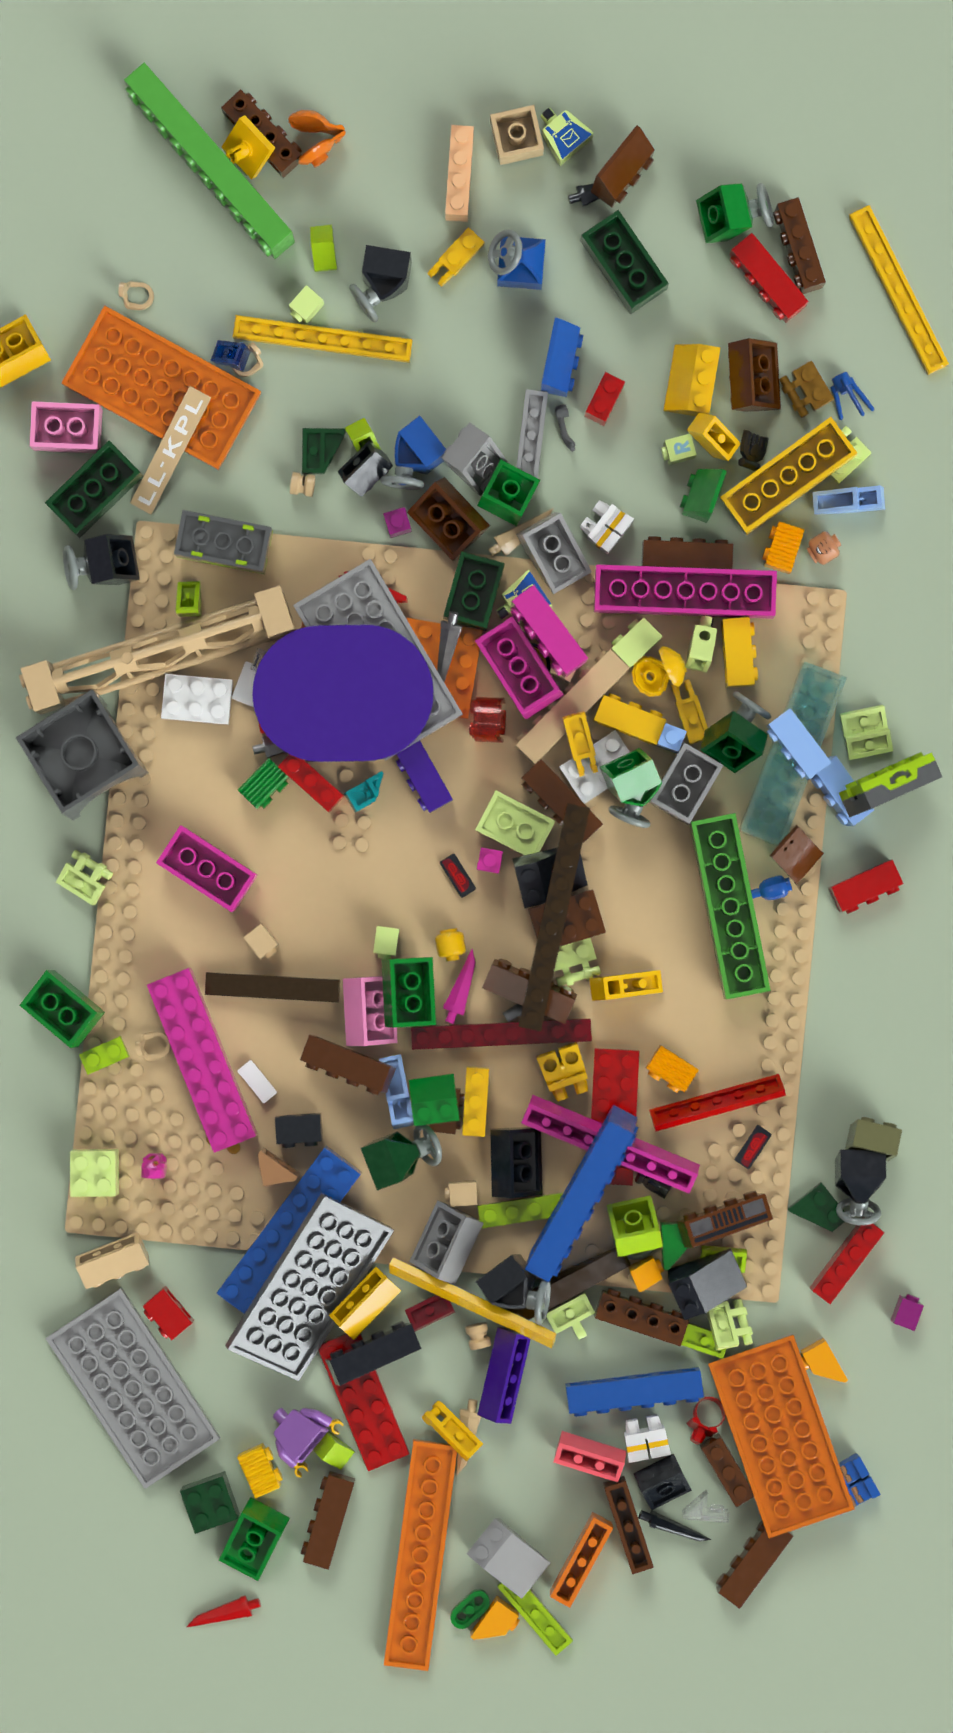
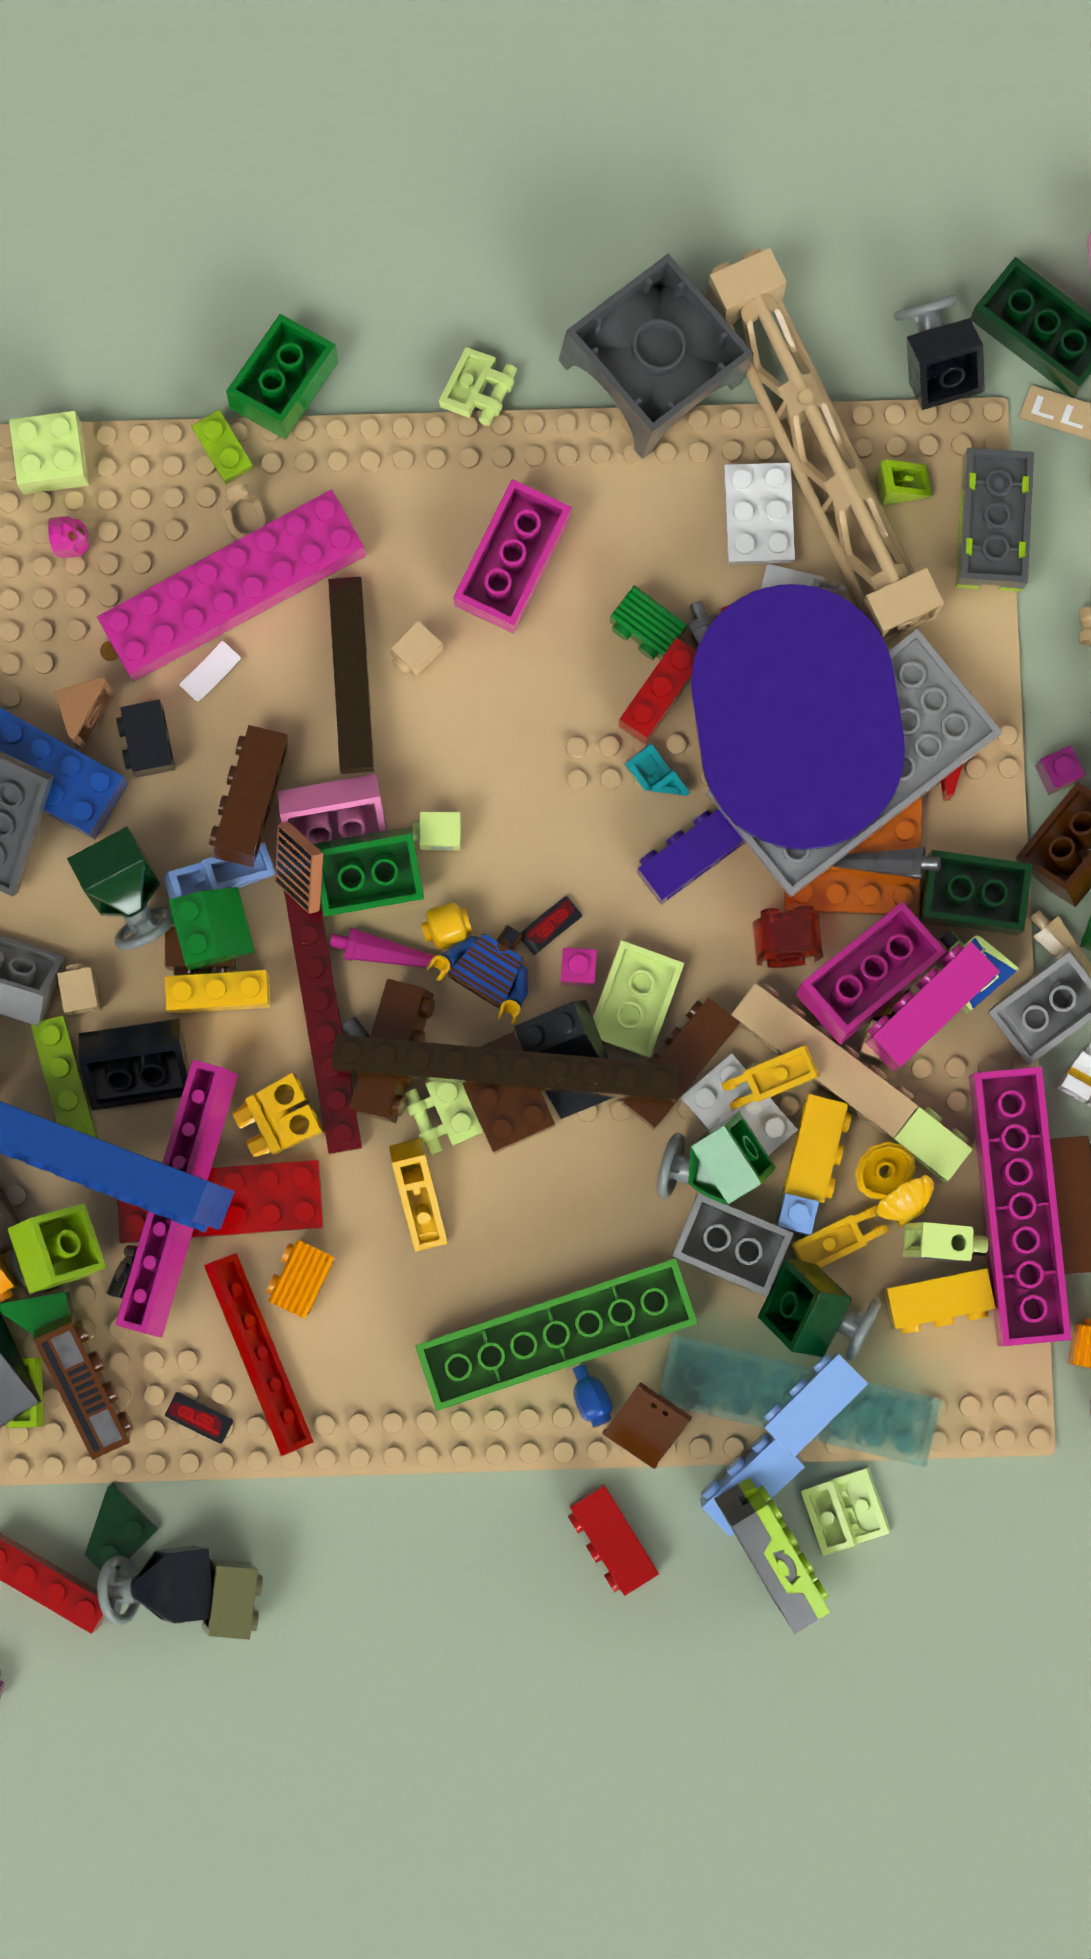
camera: 80 degrees right, 5 degrees down
(401, 1037) = (298, 867): none -> nougat tile
(484, 920) = (488, 969): none -> torso

